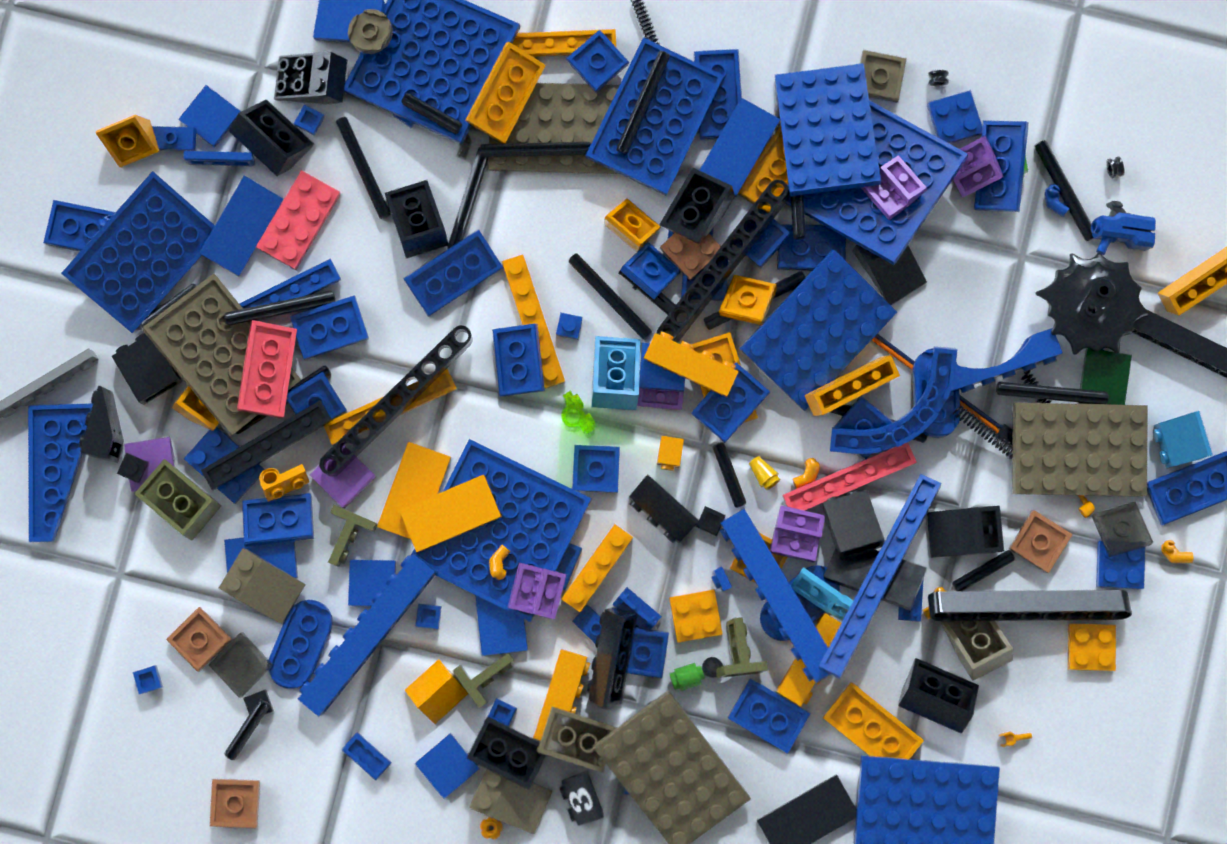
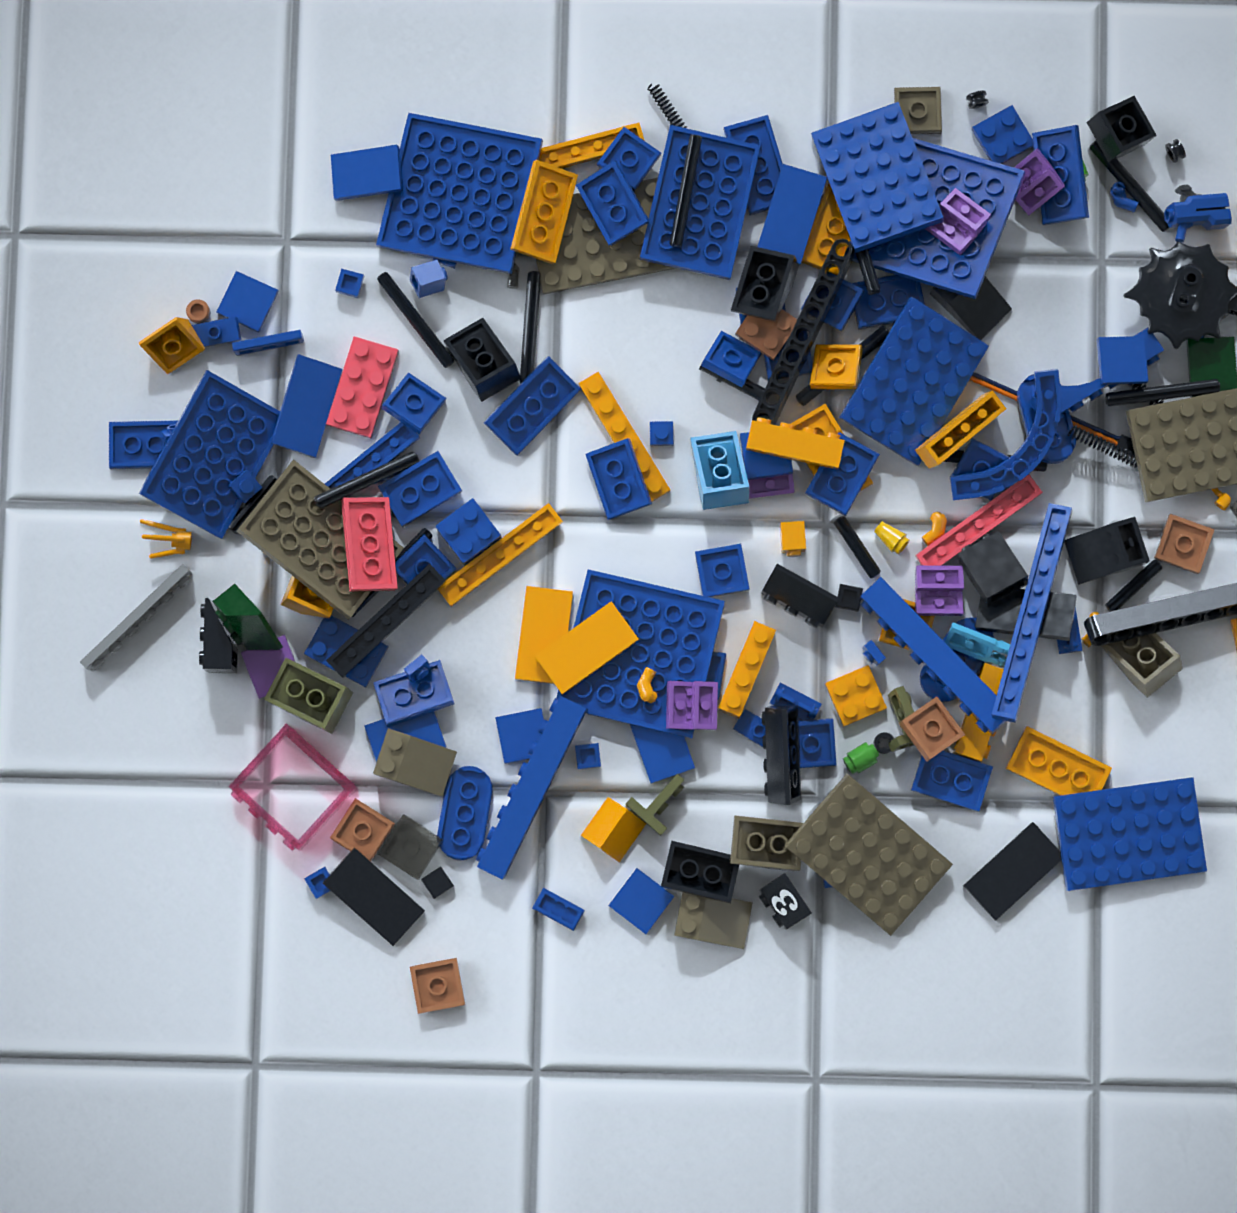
camera: 10 degrees left, 0 degrees up
(52, 463) = (172, 680): blue wing -> none
(94, 326) = (180, 539): none -> light orange plant
(130, 415) = (245, 621): none -> dark green slope
(132, 467) = (255, 673): black plate -> none
(145, 369) = (245, 567): black brick -> none
(162, 114) = (198, 311): none -> nougat tile
(165, 288) = (245, 486): none -> blue plate
(174, 563) = (258, 811): none -> clear pink window
(194, 704) = (373, 896): none -> black tile
(247, 729) = (432, 909): black axle -> none
(270, 137) = (315, 309): black slope -> none
(283, 483) = (422, 645): light orange plate -> none
(286, 497) = (417, 669): none -> blue plate
(311, 78) = (341, 240): black slope -> none
(342, 245) = (413, 403): none -> blue tile
(348, 483) = (468, 634): medium lavender slope -> none
(348, 533) = (489, 690): olive bracket -> none
(364, 378) = (468, 531): none -> blue brick
(370, 31) = (392, 180): dark tan tile -> none
(383, 131) = (428, 278): none -> brick
(393, 412) = (510, 535): black beam -> none
(431, 113) = (474, 249): black axle -> none
(486, 832) = (693, 952): light orange plate -> none
(502, 712) = (684, 834): blue tile -> none
(534, 149) = (586, 262): black axle -> none
(563, 686) = (739, 795): light orange brick -> none
(572, 99) = (612, 203): none -> blue plate
(574, 406) = (686, 512): clear neon green plate -> none
(610, 296) = (695, 394): black axle -> none
(631, 224) = (701, 317): light orange slope -> none
(759, 665) = (931, 729): none -> nougat plate
(939, 696) = (1117, 720): black slope -> none
(1011, 738) = (1199, 746): light orange hand -> none
(1020, 354) = (1122, 360): none -> blue tile
(1068, 135) = (1121, 128): none -> black brick

